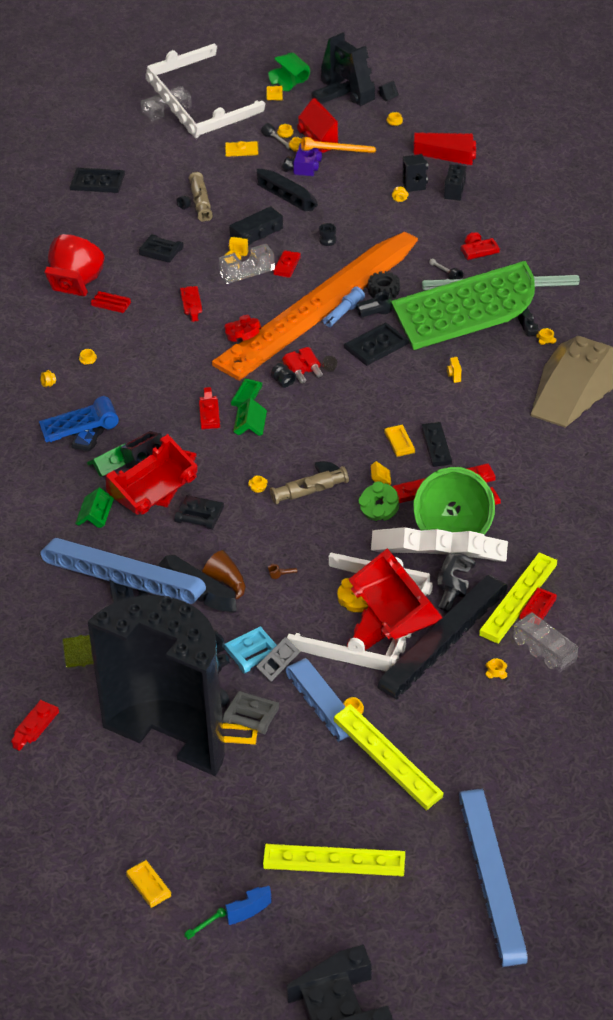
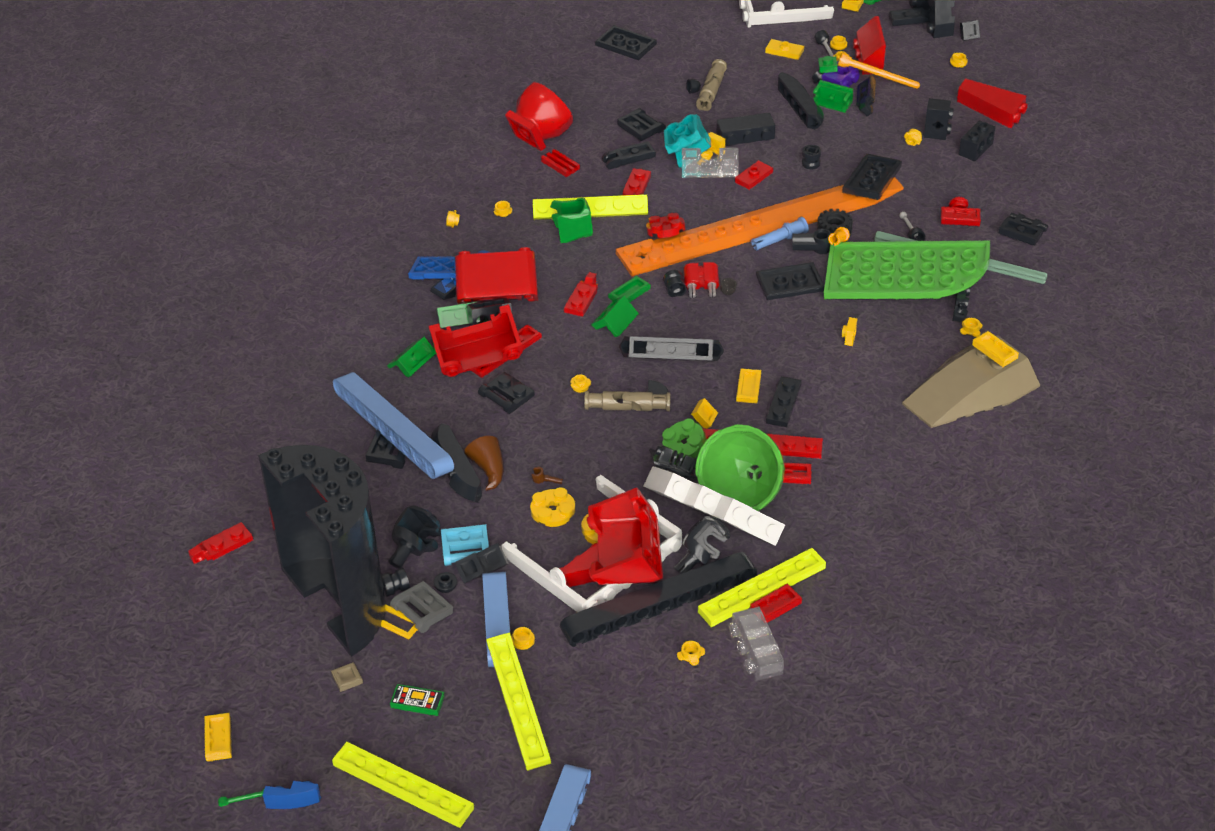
camera: 25 degrees right, 0 degrees up
(130, 415) = (496, 276): none -> red windscreen
(162, 344) = (572, 219): none -> green piece
(165, 332) = (599, 206): none -> neon yellow plate
(168, 277) = (628, 155): none -> black hinge
(215, 245) = (686, 134): none -> teal piece
(224, 793) = (346, 677): none -> dark tan tile
(256, 686) = (449, 585): none -> black plate
(294, 151) = (828, 64): none -> green plate
(298, 789) = (417, 700): none -> tile
(304, 583) = (554, 497): none -> yellow plate
(312, 177) = (833, 96): none -> green hinge
(317, 430) = (671, 348): none -> brick
(338, 169) = (866, 95): none -> black hinge
(387, 518) = (664, 459): none -> black hinge
(388, 236) = (872, 176): none -> black tile
(397, 296) = (840, 235): none -> light orange pin
(535, 244) = (1023, 228): none -> black plate
(586, 346) = (995, 349): none -> yellow plate

